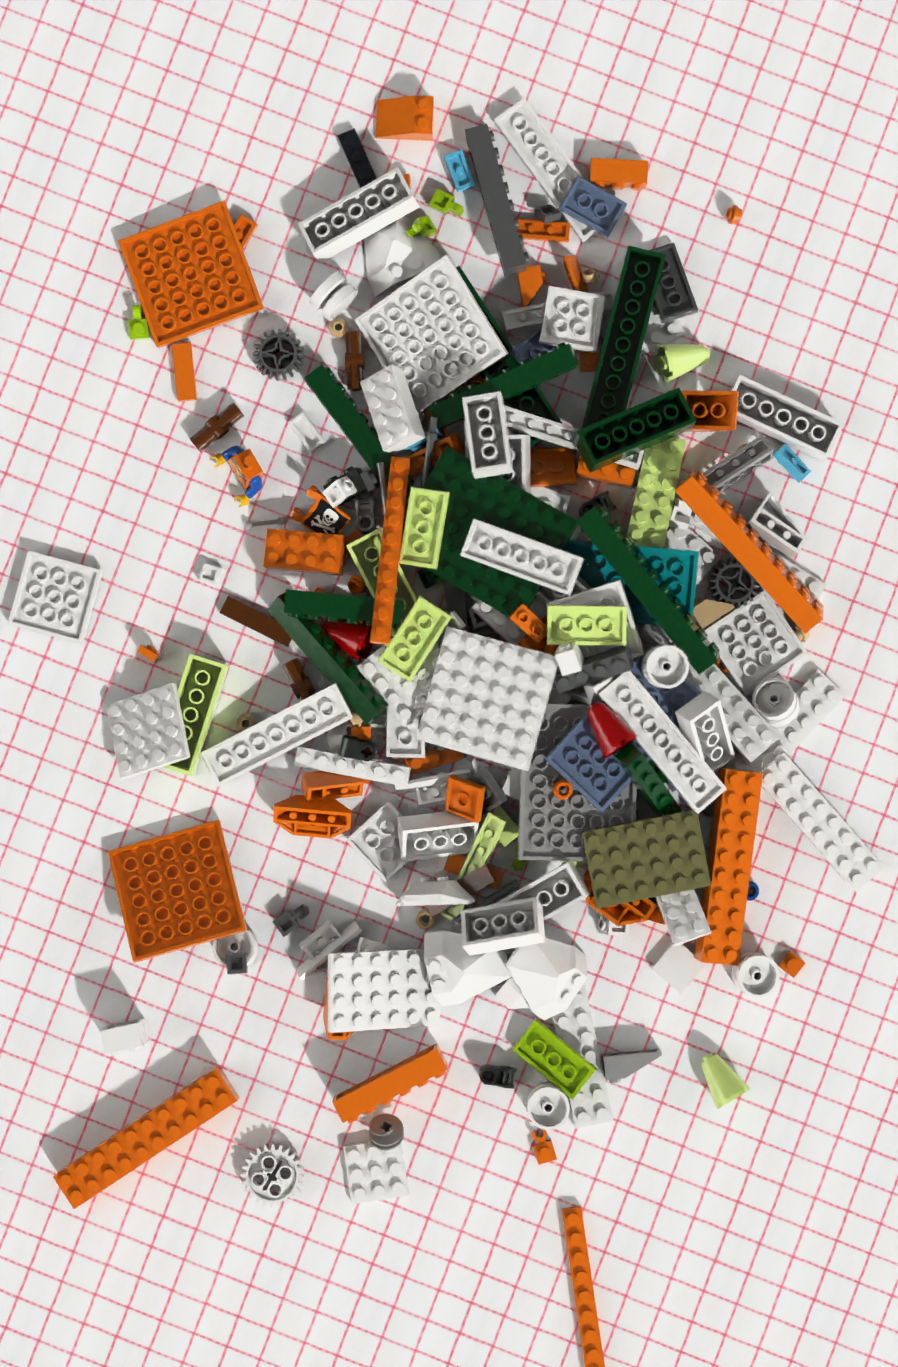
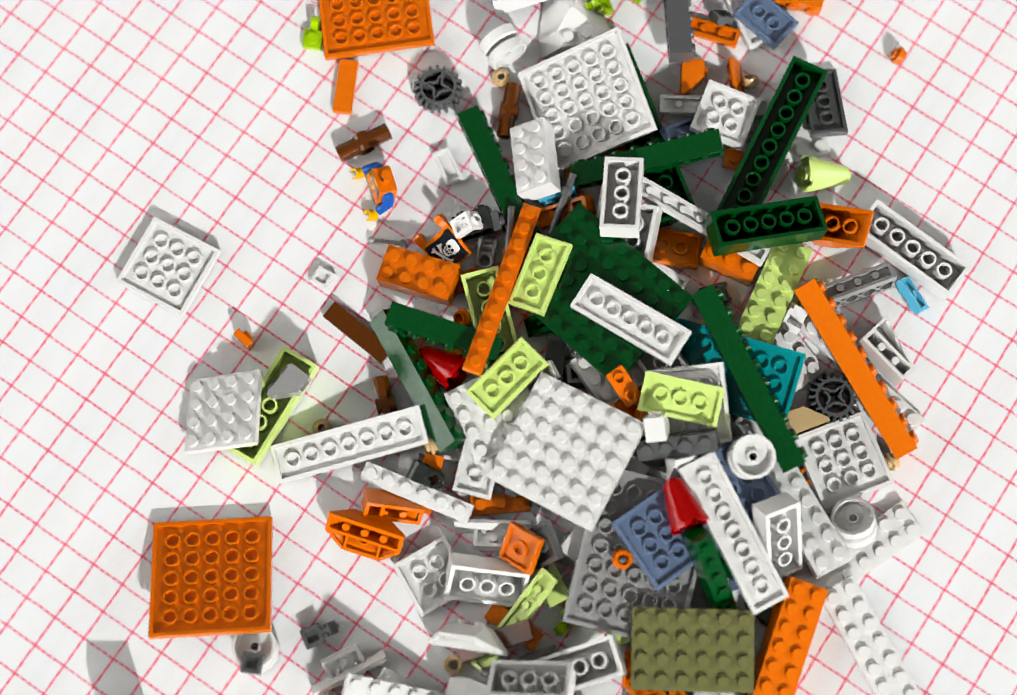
camera: 15 degrees right, 10 degrees down
(206, 690) = (289, 384): none -> light grey slope

